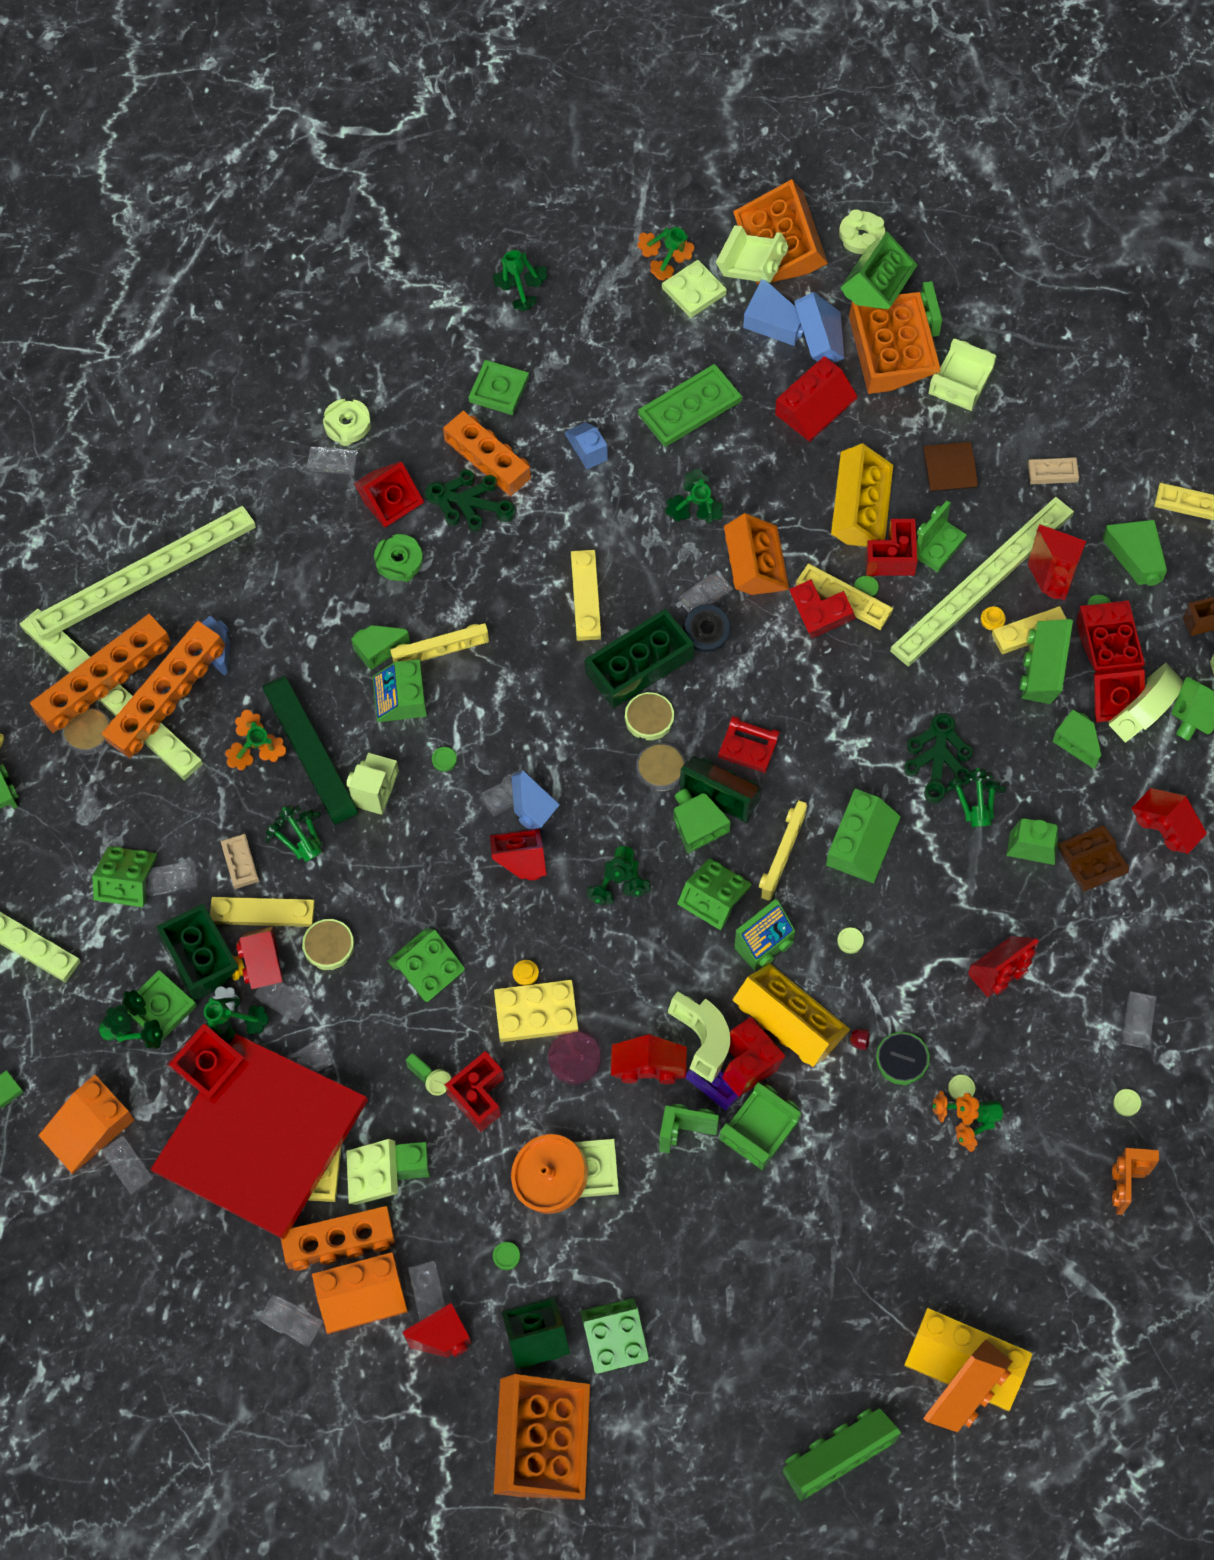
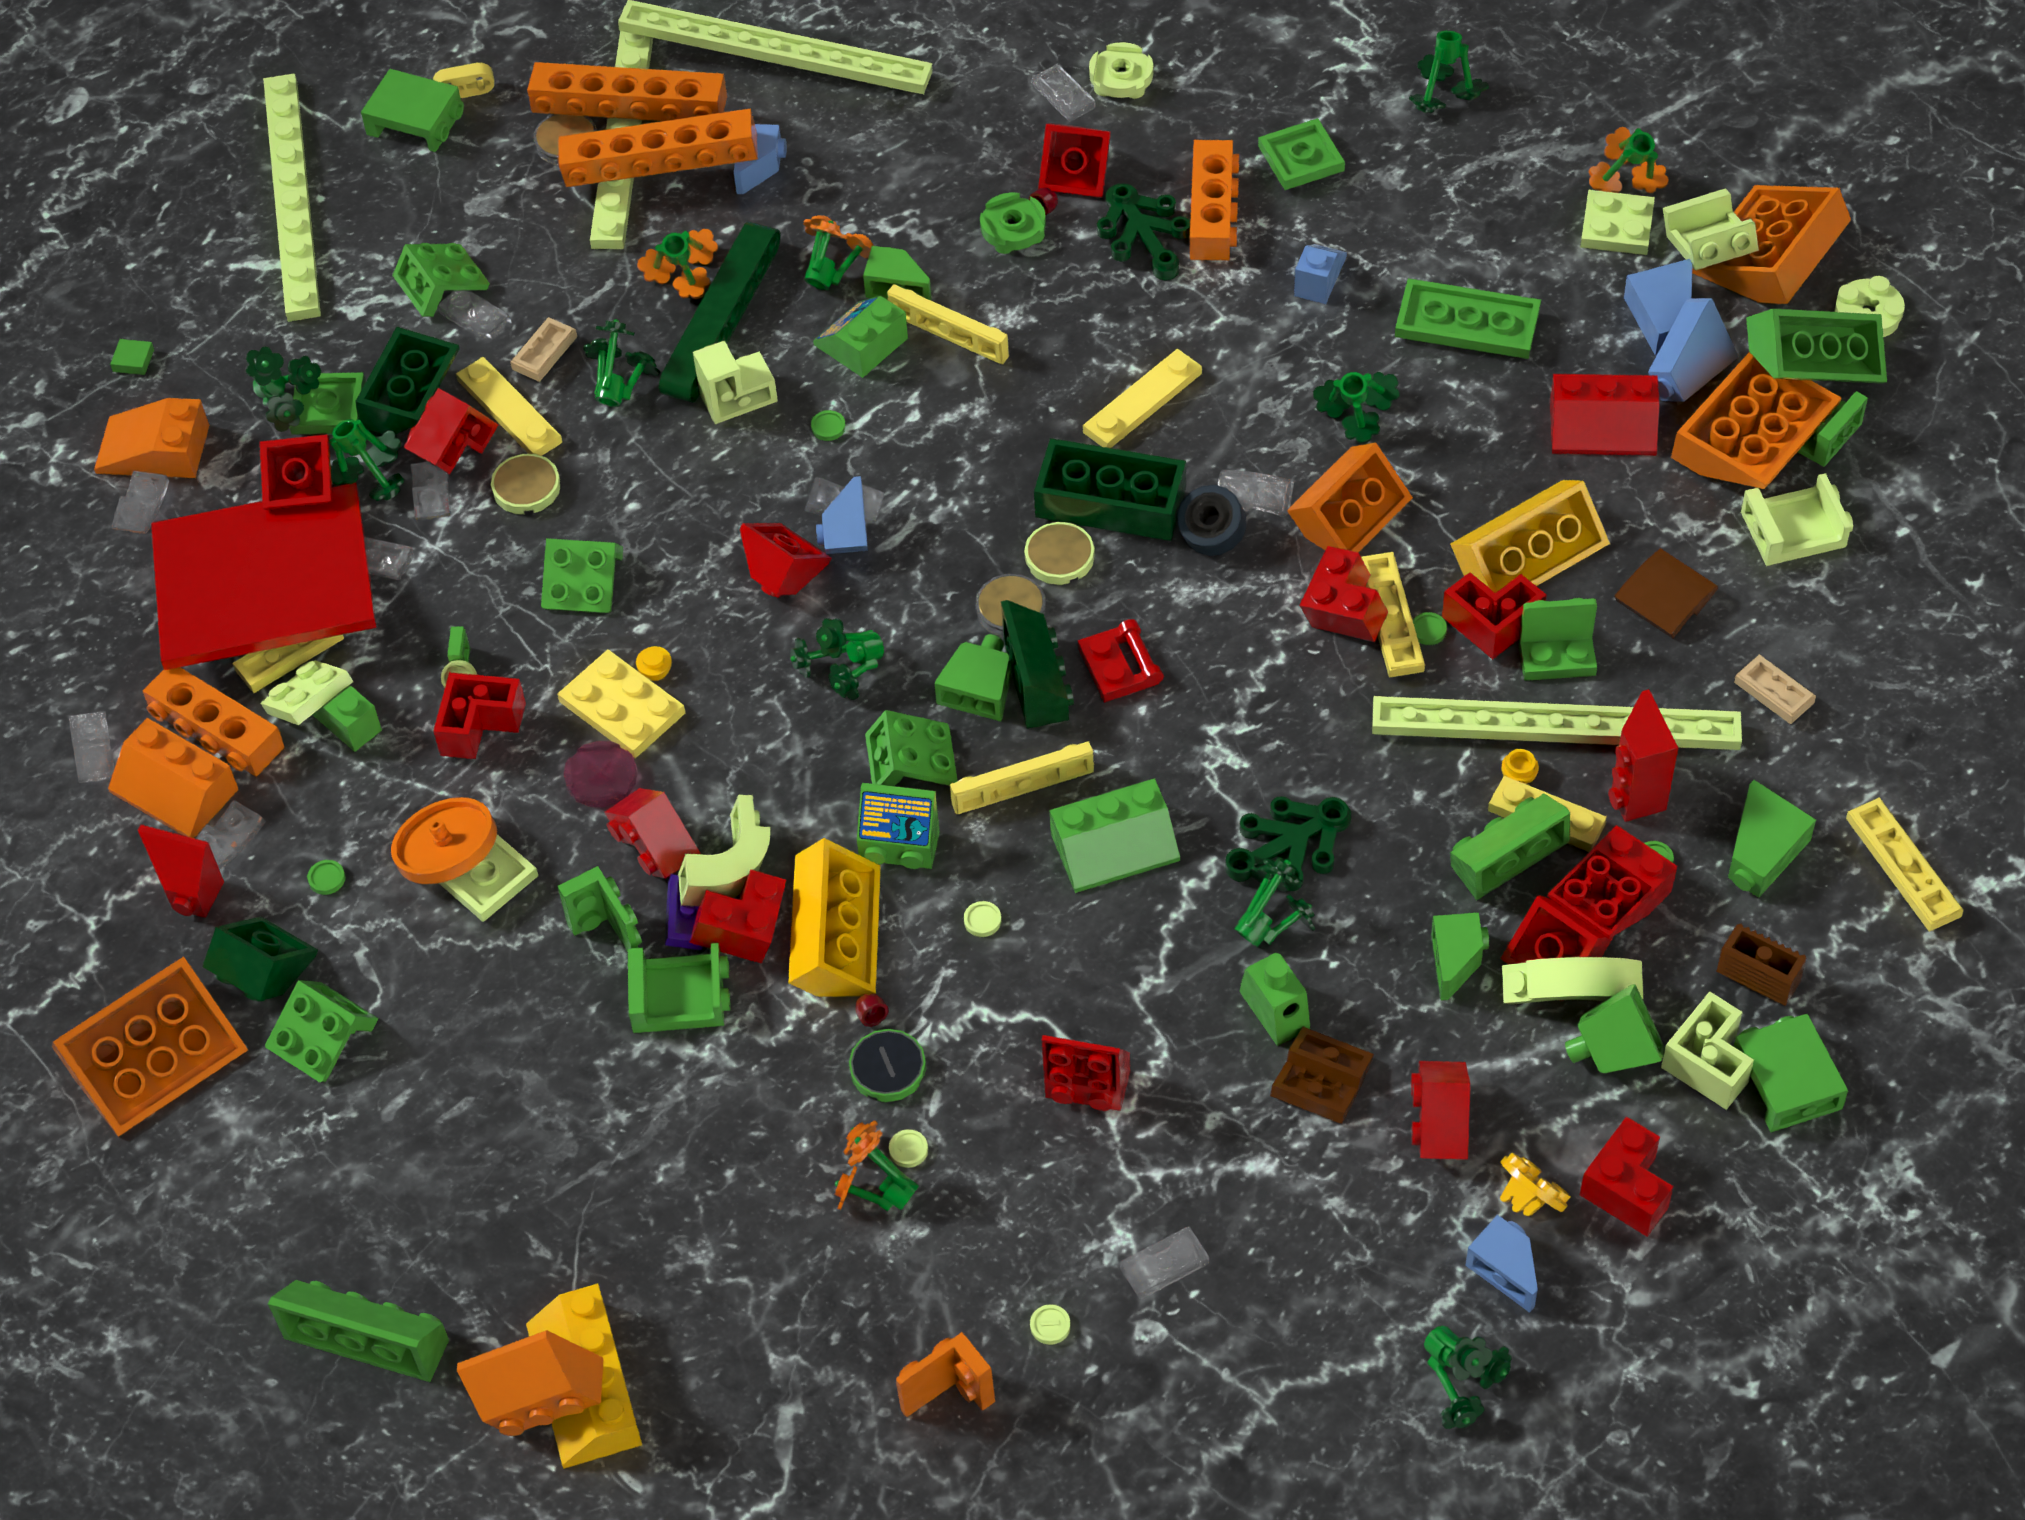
camera: 50 degrees right, 10 degrees down
(335, 677) = (821, 269): none -> green plant
(399, 527) = (1047, 198): none -> dark red hinge

